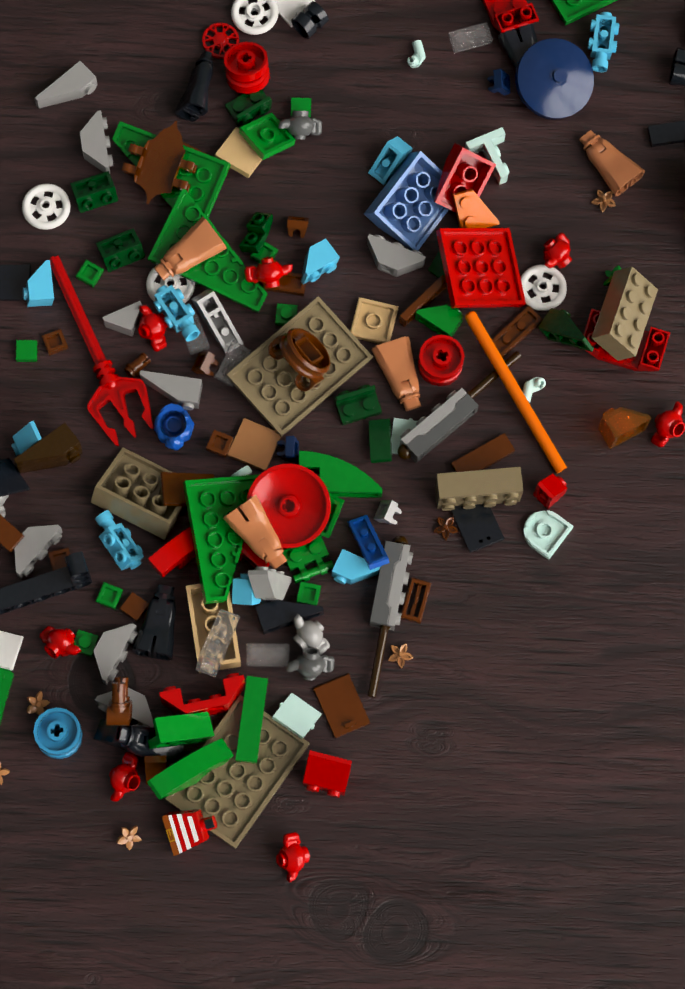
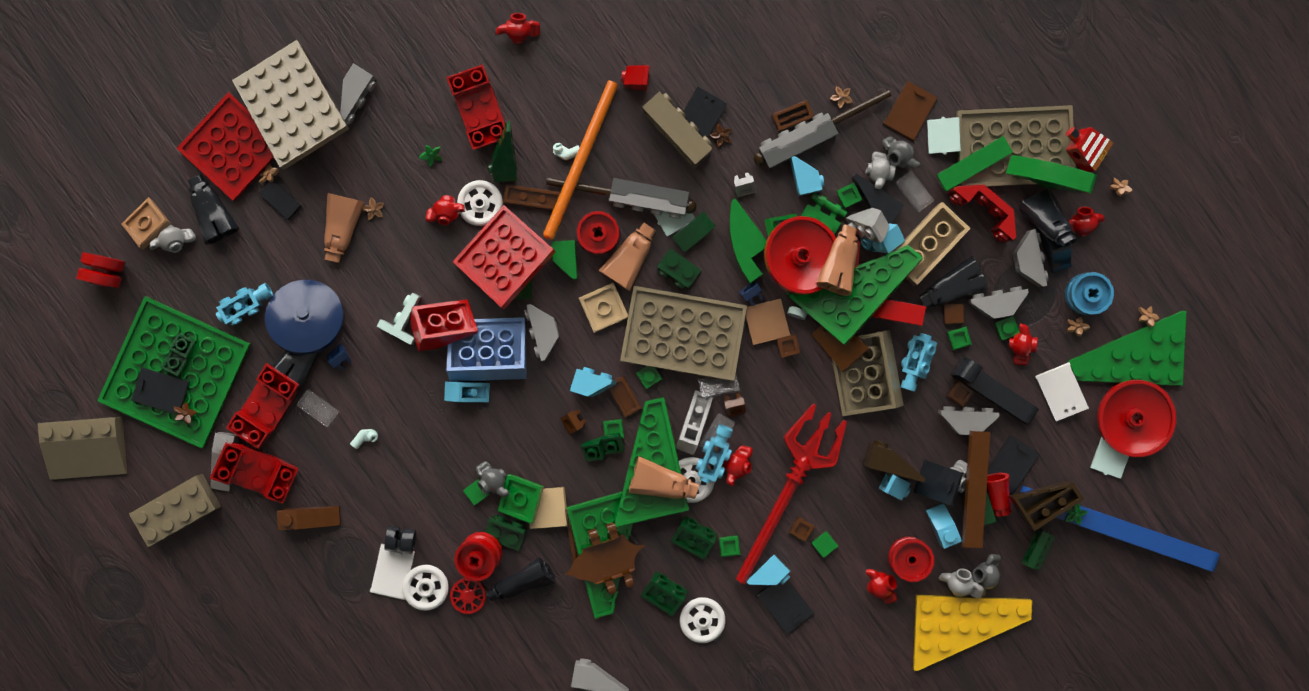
camera: 120 degrees left, 15 degrees up
(95, 143) = (625, 622): light grey slope -> none
(120, 707) = (1047, 258): reddish brown piece -> none
(124, 320) = (747, 490): light grey slope -> none
(138, 364) = (773, 454): reddish brown pin -> none
(154, 766) = (1063, 202): reddish brown tile -> none
(173, 426) = (801, 389): blue piece -> none
(178, 389) = (769, 407): light grey slope -> none
(181, 730) = (1027, 203): green panel -> none
(217, 643) = (944, 226): clear slope -> none
(268, 272) = (631, 412): red piece -> none
(292, 855) = (1047, 60): red piece -> none
(304, 355) = (685, 349): reddish brown piece -> none
(327, 774) = (972, 79): red slope -> none
(368, 542) = (779, 180): blue tile -> none
(423, 301) = (561, 282): reddish brown tile -> none
(472, 211) = (462, 297): orange wing -> none
(484, 455) = (647, 148): reddish brown tile -> none
(545, 532) = (668, 60): light aqua tile -> none
(622, 425) = (549, 61): clear orange slope -> none
(624, 313) = (458, 120): dark tan brick -> none

